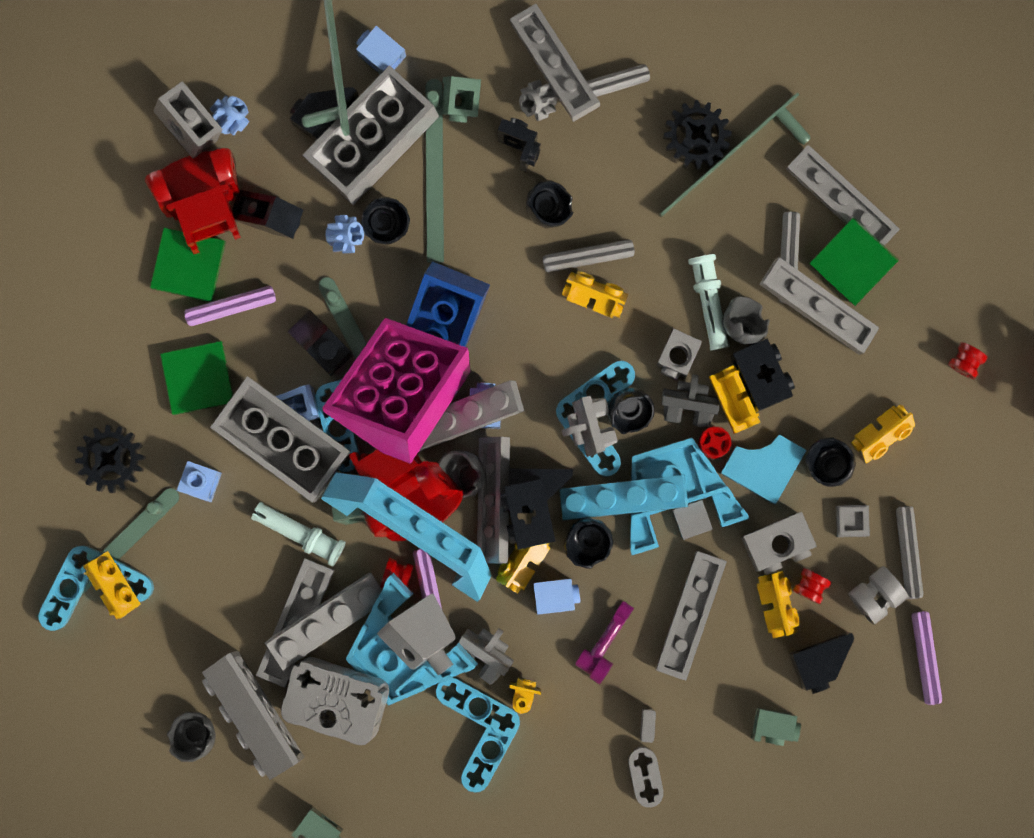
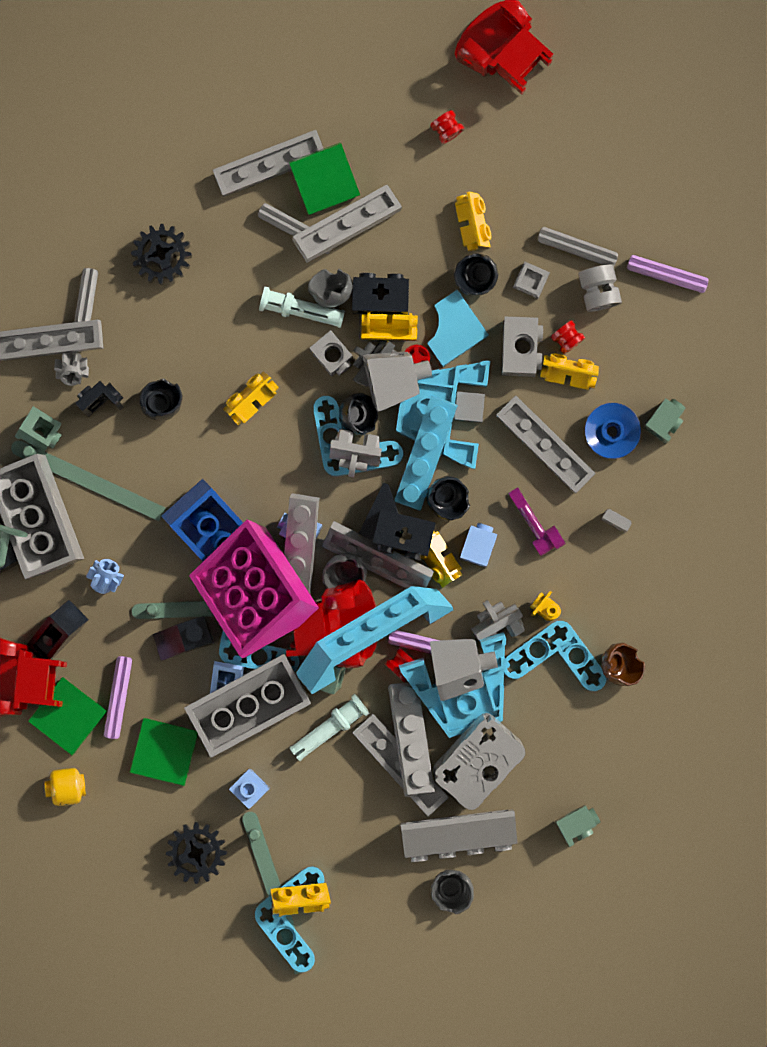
camera: 60 degrees left, 0 degrees up
(115, 296) = (65, 787): none -> yellow head
(385, 220) = (110, 538): black hair -> none
(502, 801) = (622, 665): none -> reddish brown hair
(588, 255) = (217, 388): light grey axle -> none
(653, 776) = (657, 535): light grey beam -> none
(684, 428) = (394, 377): none -> light grey torso
(754, 683) = (614, 416): none -> blue dish
(784, 116) = (180, 177): sand green piece -> none
(821, 662) = (631, 358): black slope -> none

